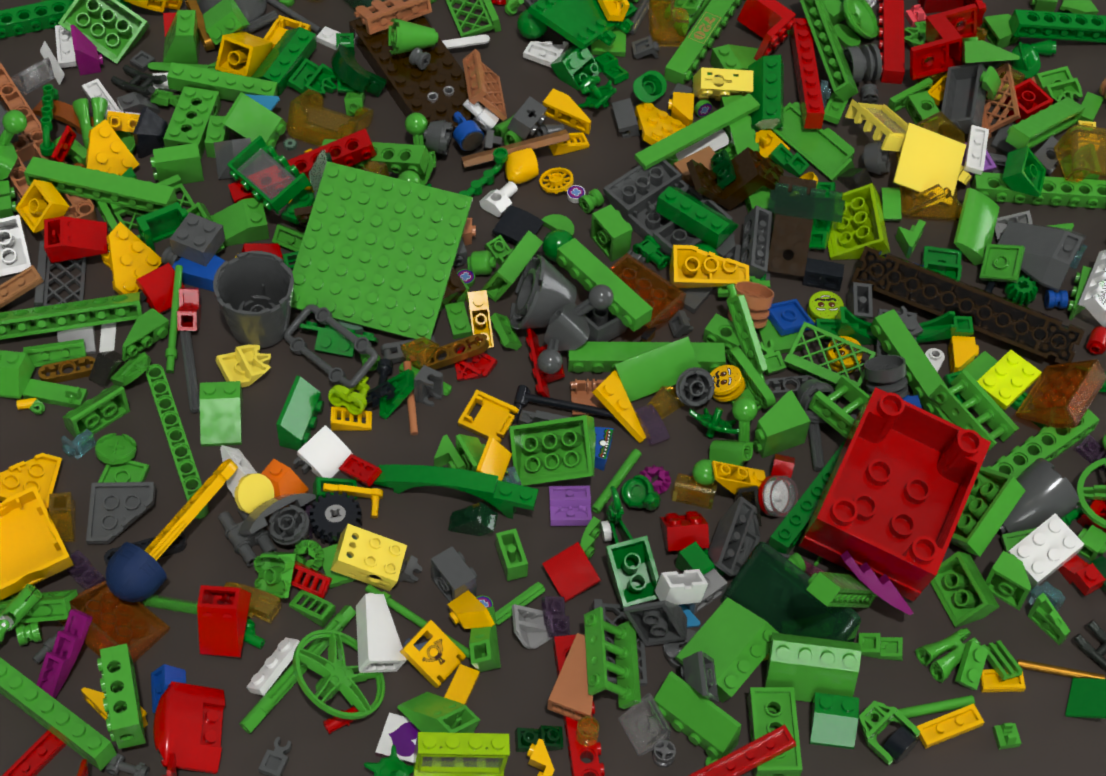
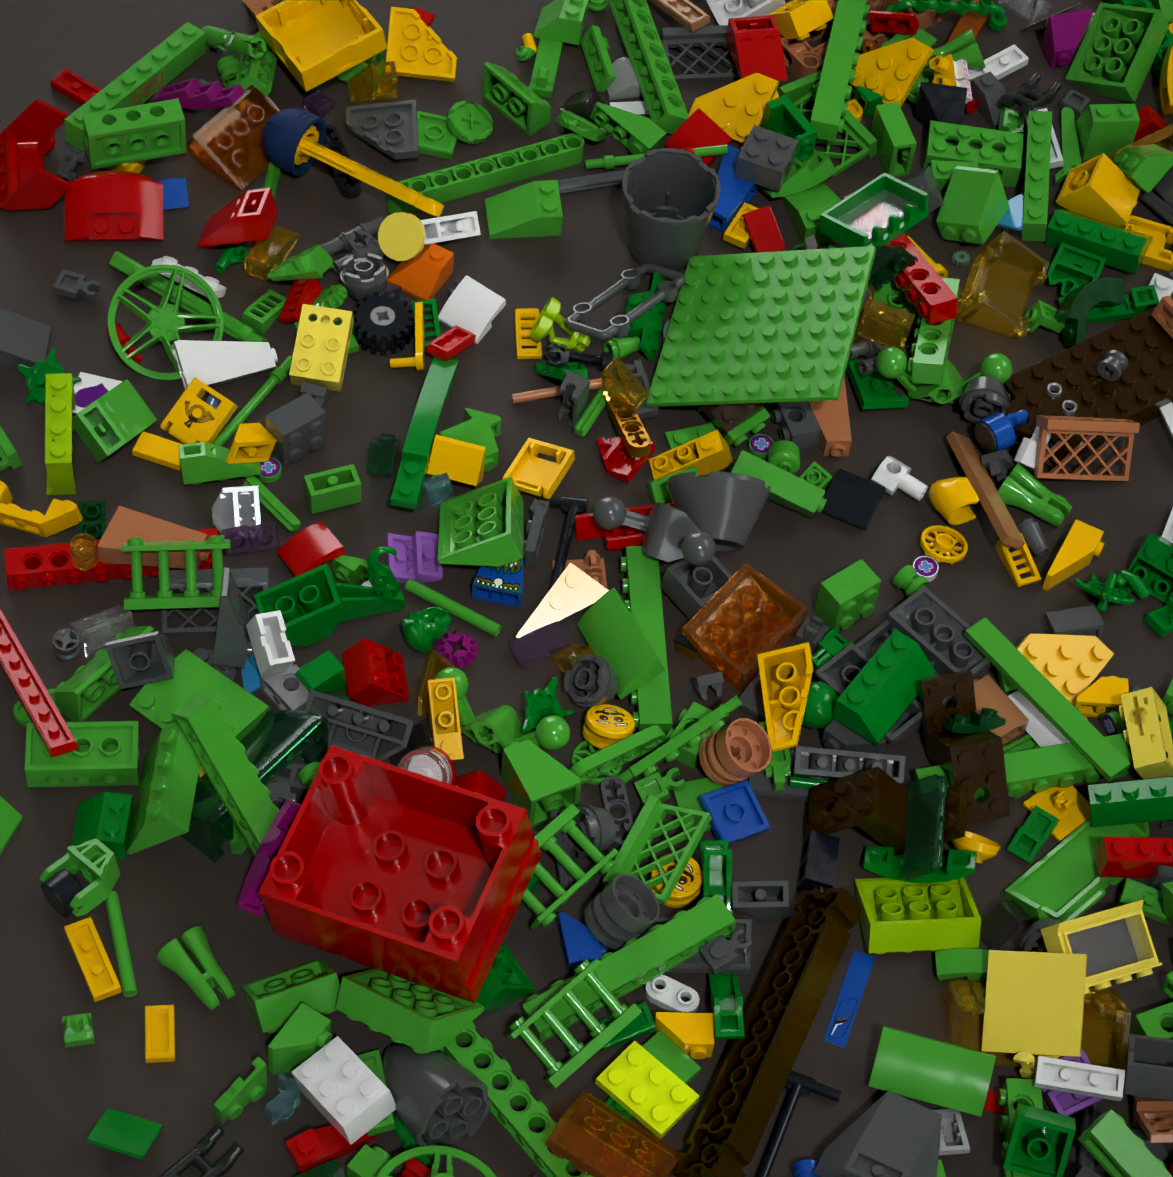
camera: 85 degrees right, 0 degrees up
(75, 374) = (579, 67): pearl gold beam -> none
(80, 445) = (473, 91): clear light blue bracket -> none
(244, 364) = (595, 227): light yellow plate -> none
(257, 520) = (404, 282): dark grey slope -> none
(299, 414) = (523, 275): slope -> none
(407, 36) = (1145, 348): bright green cone -> none
(500, 156) = (959, 466): green bar -> none
(527, 118) = (1047, 493): dark grey brick -> none
(553, 241) = (820, 540): green piece -> none
(557, 222) = (868, 549): bright green tile -> none
(591, 272) = (737, 569): bright green brick -> none
(649, 86) = (1132, 649): green piece -> none
(824, 305) = (755, 859): lime head -> none
(881, 647) = (210, 891): bright green slope -> none
(909, 238) = (894, 984): bright green slope -> none
(943, 261) = (851, 1022): green plate -> none
(971, 665) = (175, 990): bright green plate -> none
(1002, 263) = (856, 1094): bright green tile -> none
(1004, 659) = (206, 1024): bright green tile -> none
(1021, 292) = (809, 1124): green gear -> none
(1073, 673) = (172, 1109): pearl gold bar -> none

